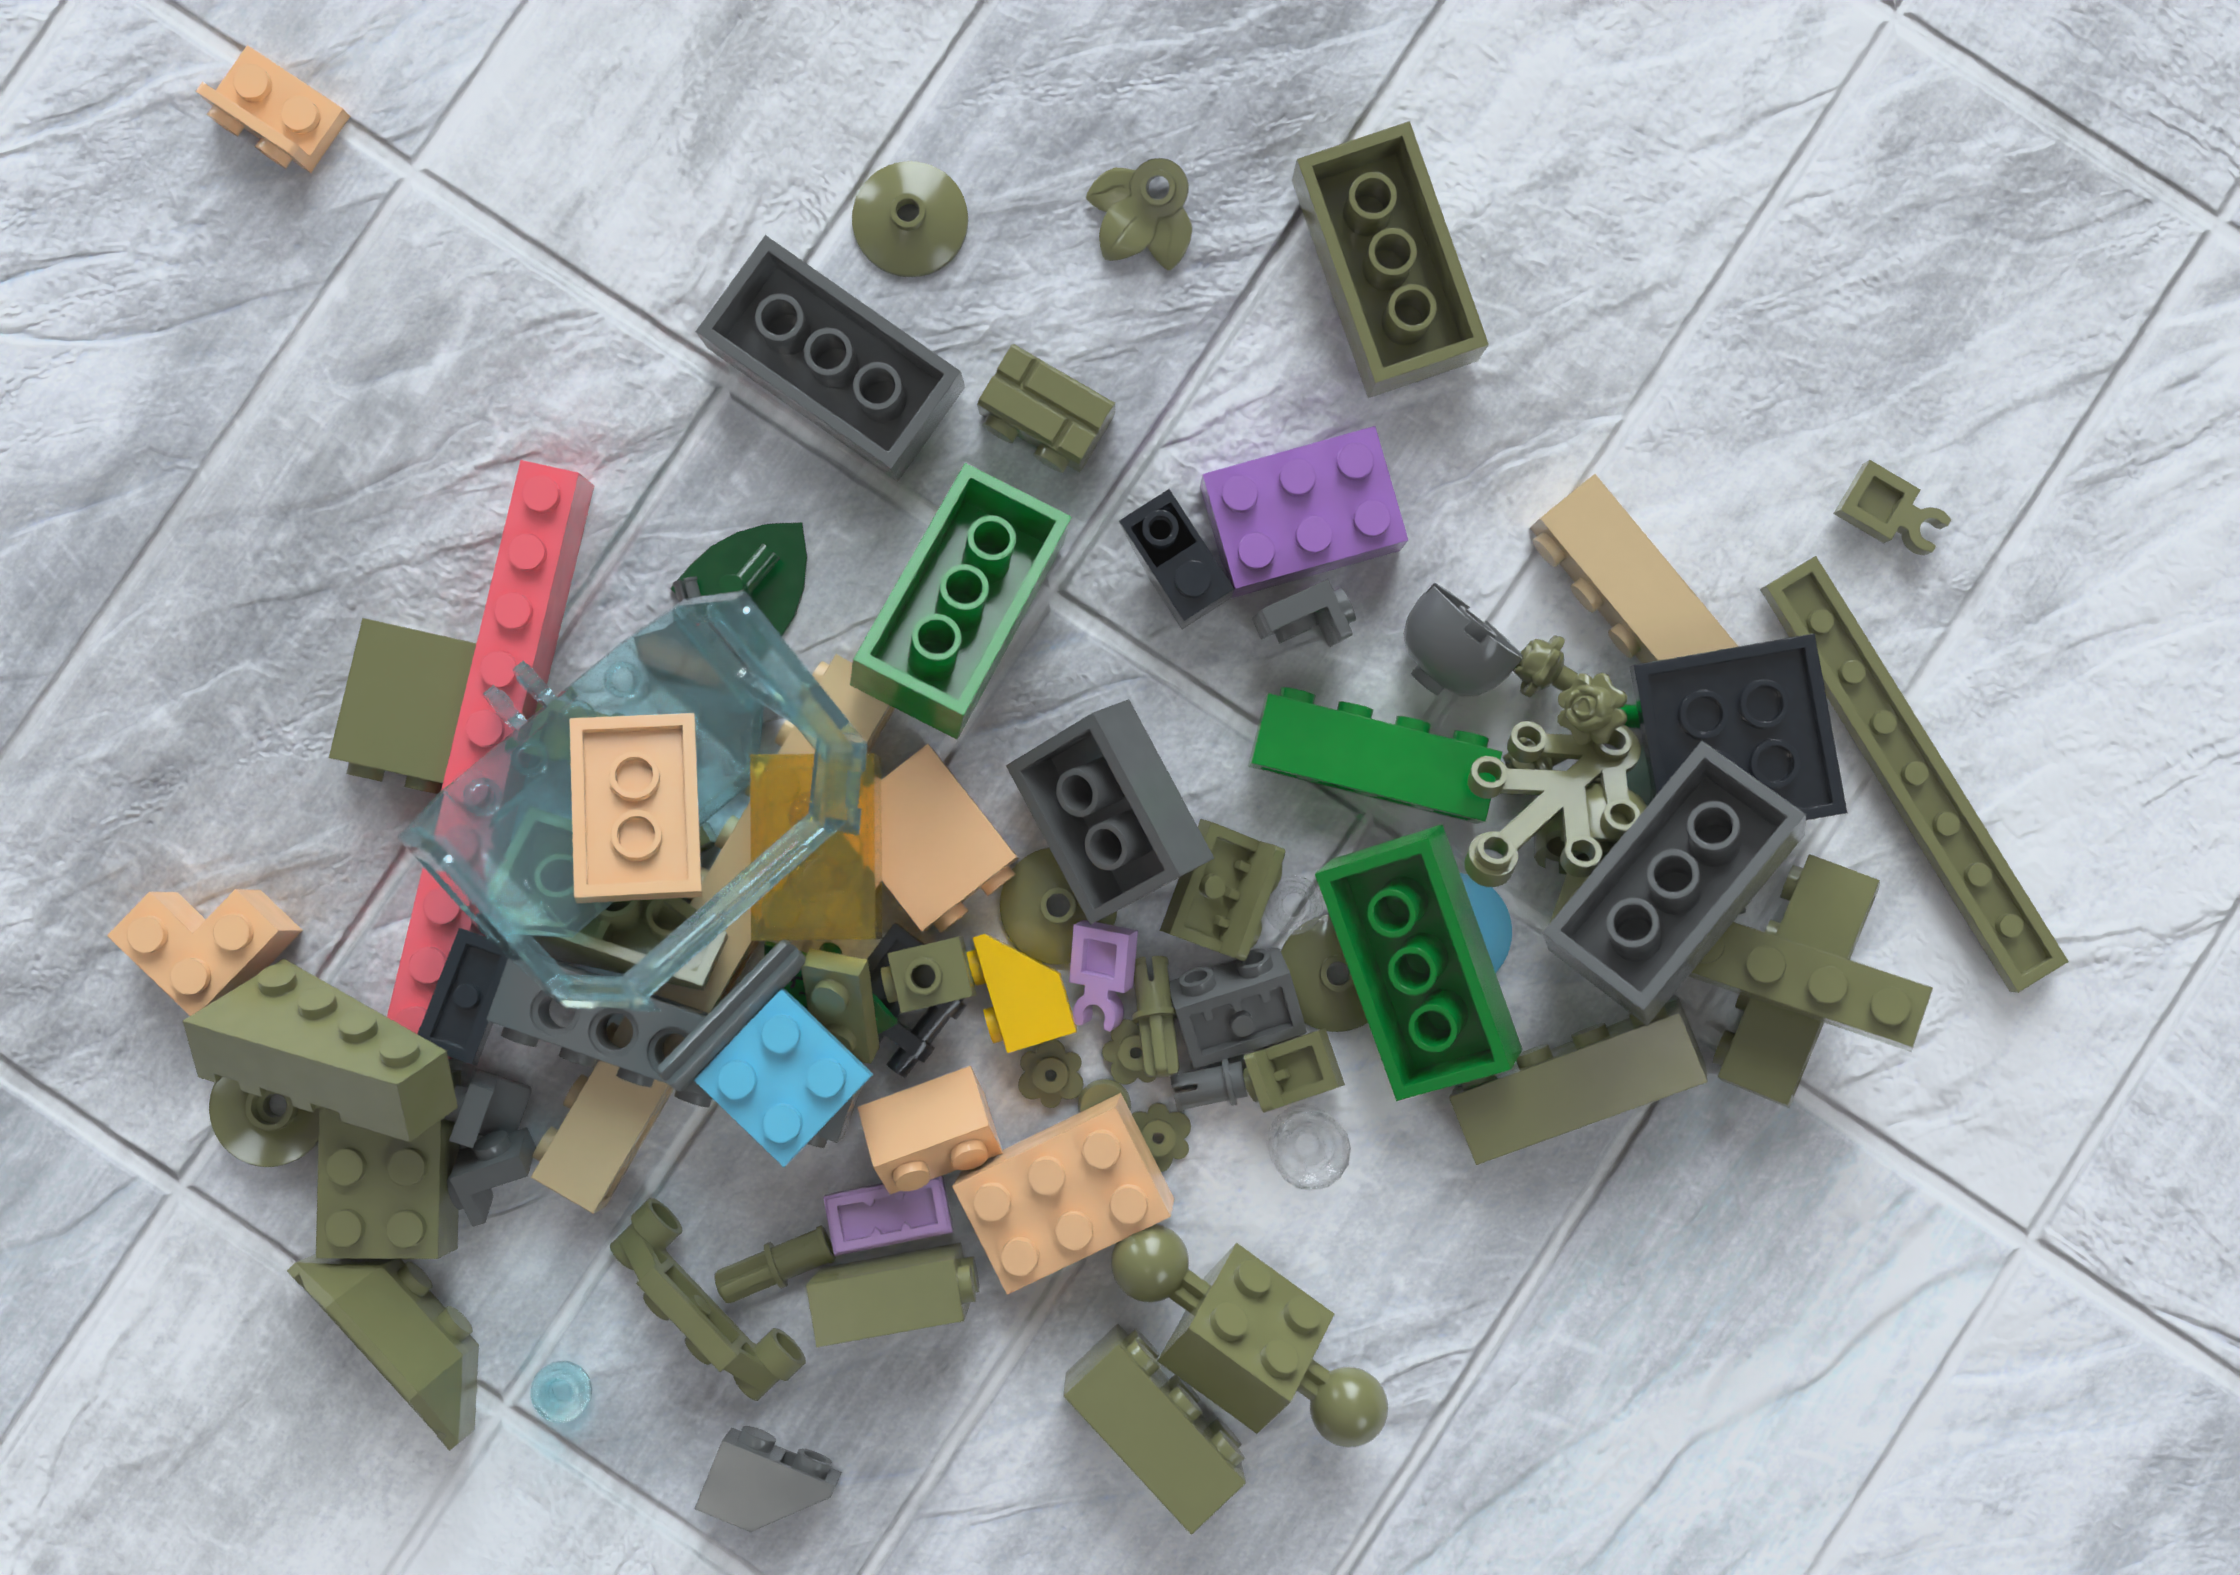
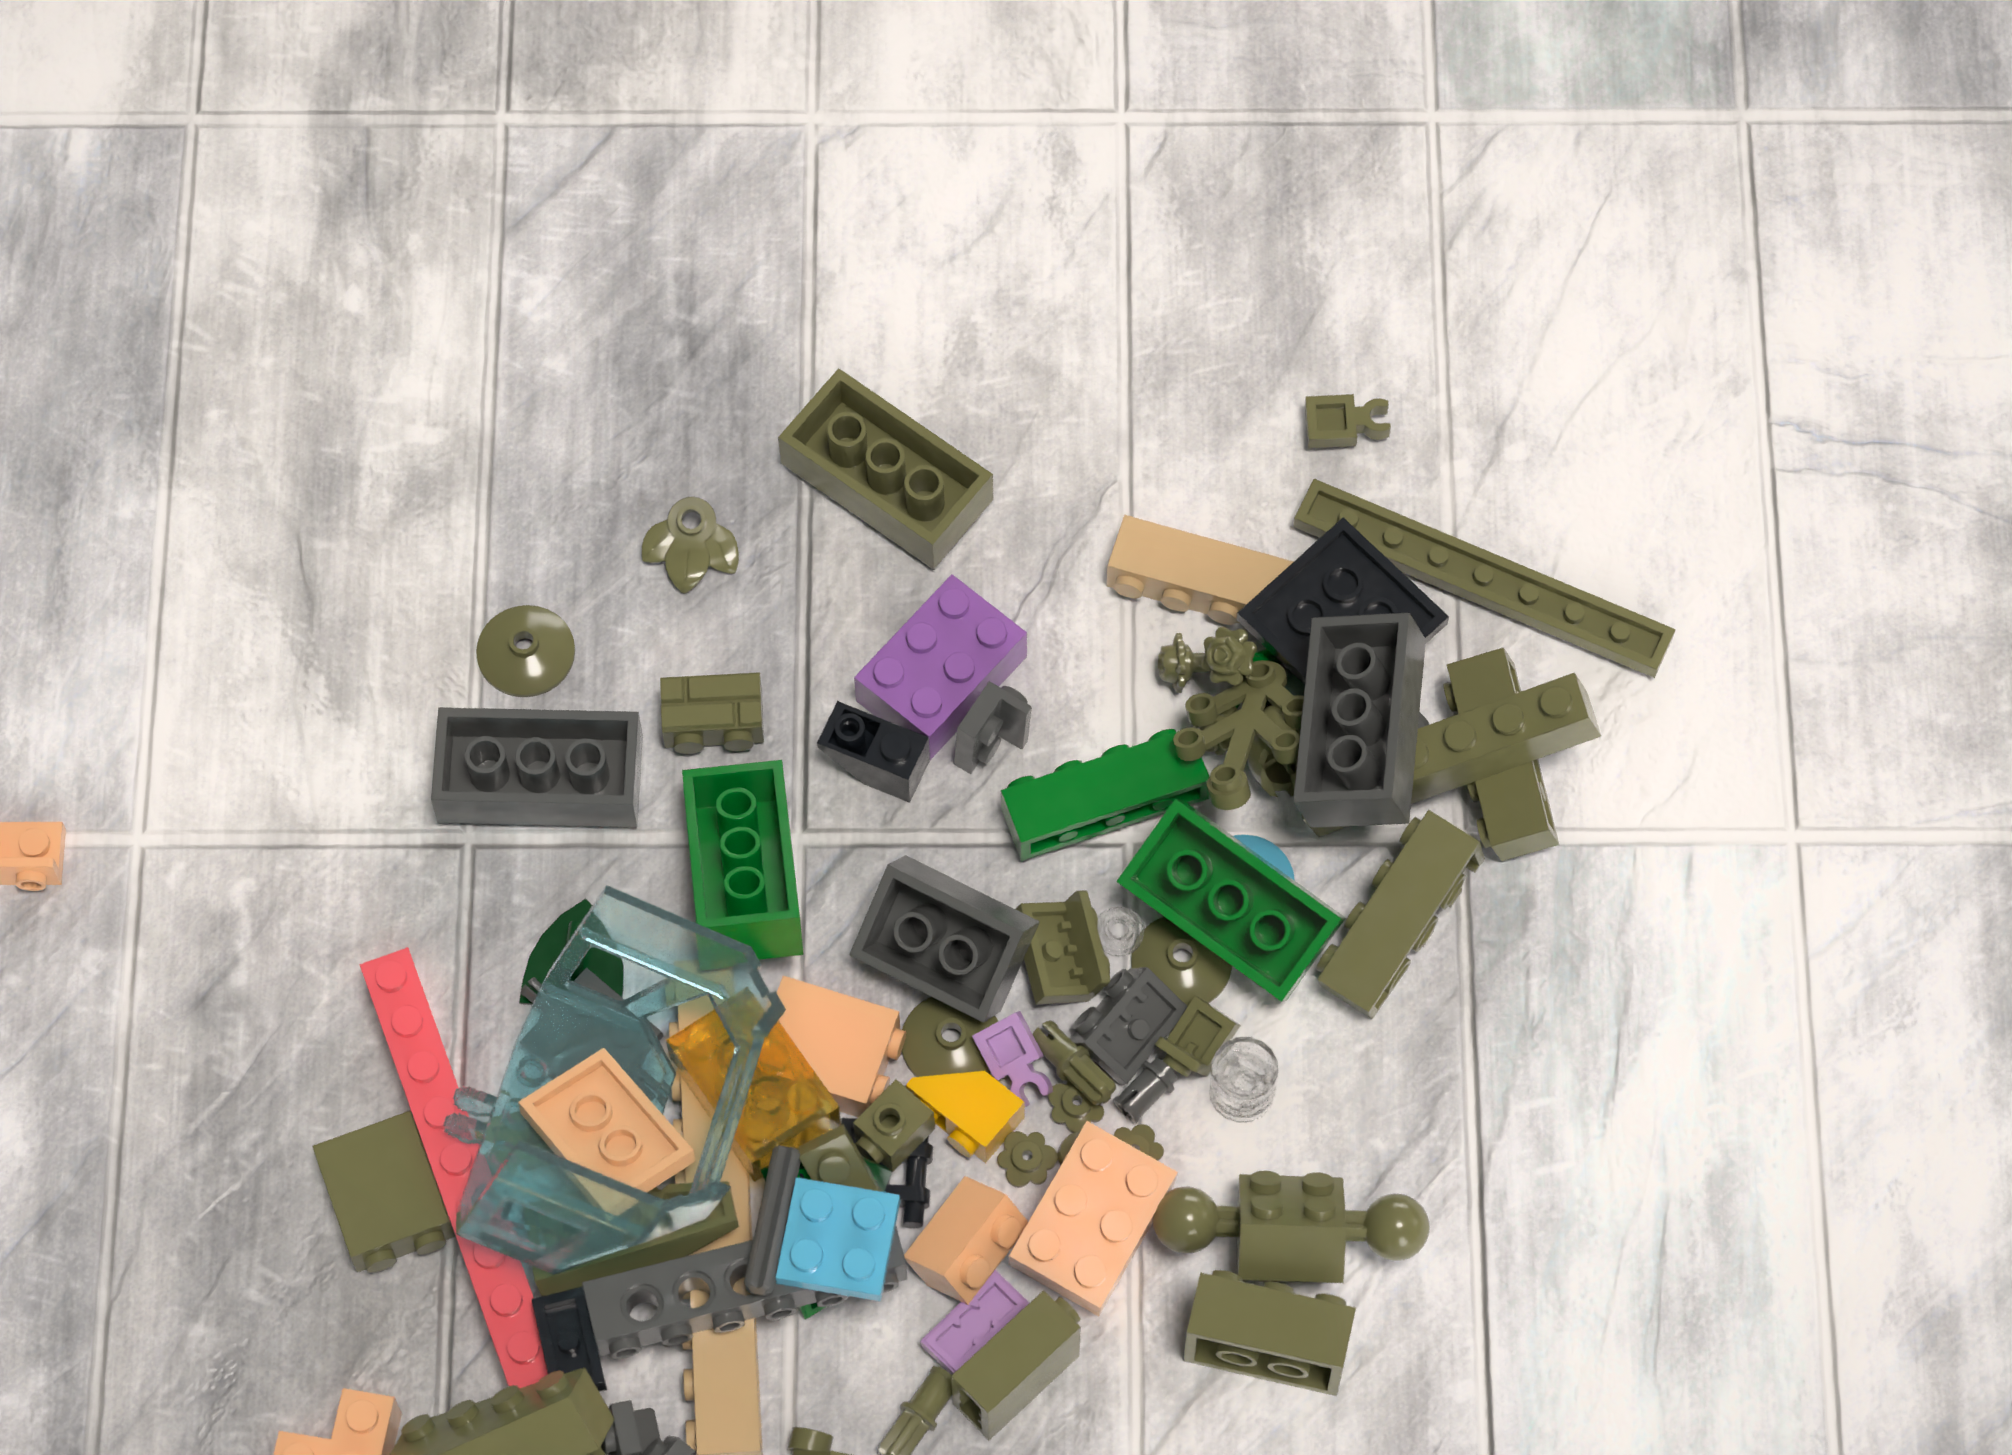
camera: 30 degrees left, 20 degrees down
(1456, 646) = (1110, 684): dark grey cylinder -> none

